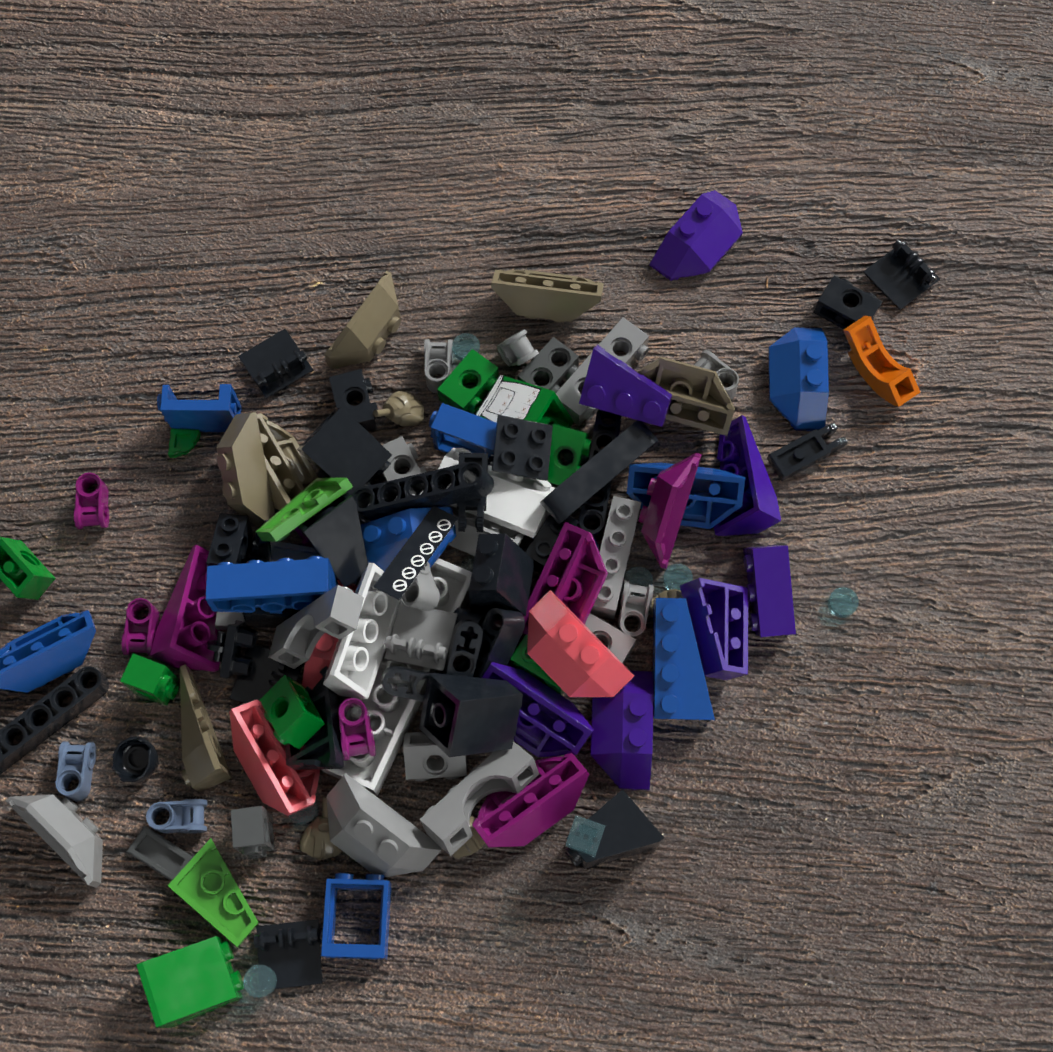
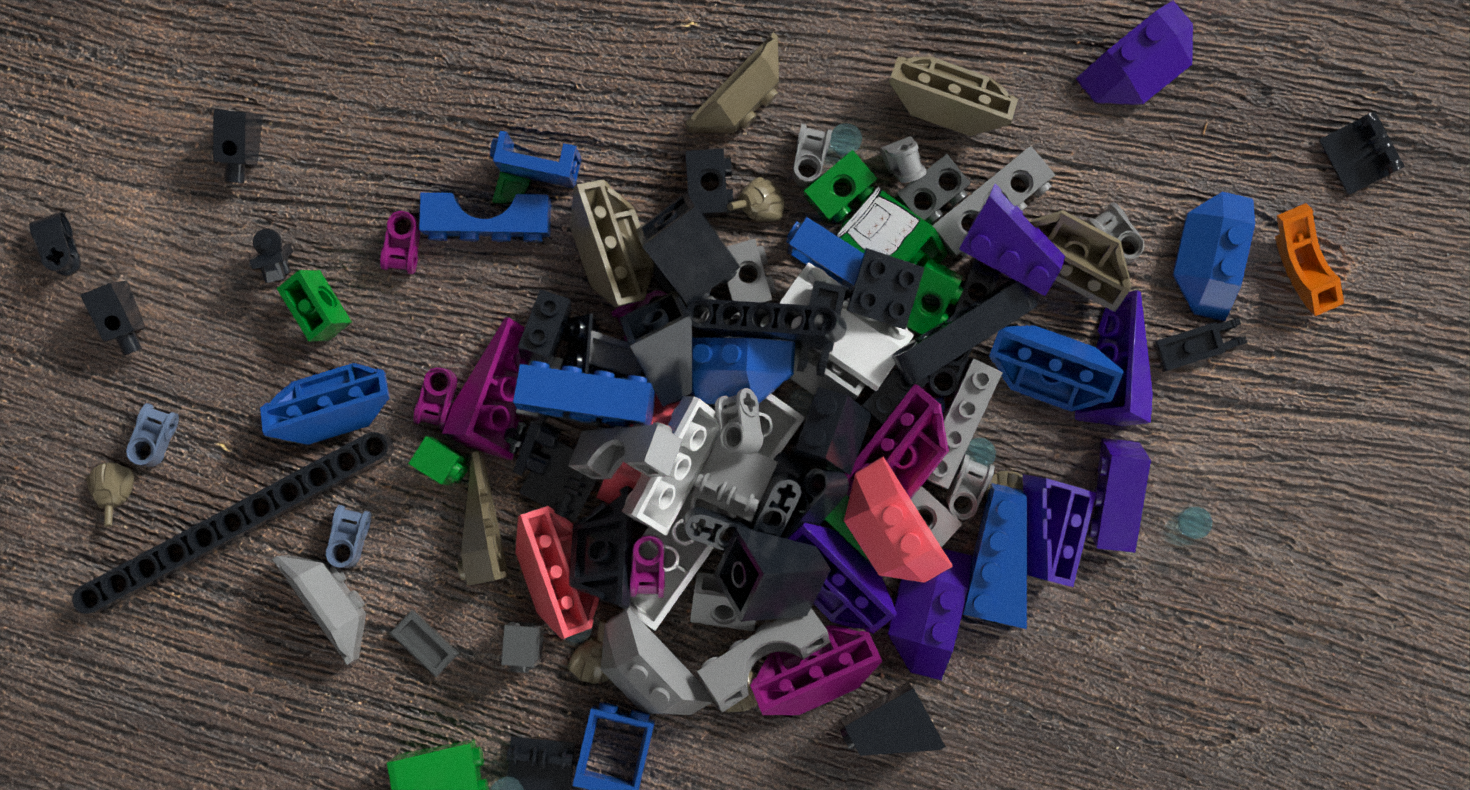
camera: 15 degrees right, 15 degrees up
(127, 474) = (526, 217): none -> blue arch
(135, 759) = (410, 541): black hair -> none
(185, 816) = (449, 610): sand blue piece -> none
(215, 895) = (474, 698): bright green wing -> none
(245, 469) = (575, 245): dark tan wedge -> none
(276, 363) = (628, 115): black hinge -> none
(291, 712) = (583, 532): green brick -> none
(302, 507) = (634, 309): bright green wing -> none
(415, 553) = (747, 392): black sticker -> none
(585, 836) = (865, 730): clear light blue tile -> none
(667, 506) = (1031, 384): magenta wedge -> none
(676, 575) = (1022, 458): clear light blue tile -> none
(841, 291) = (1272, 179): black brick -> none

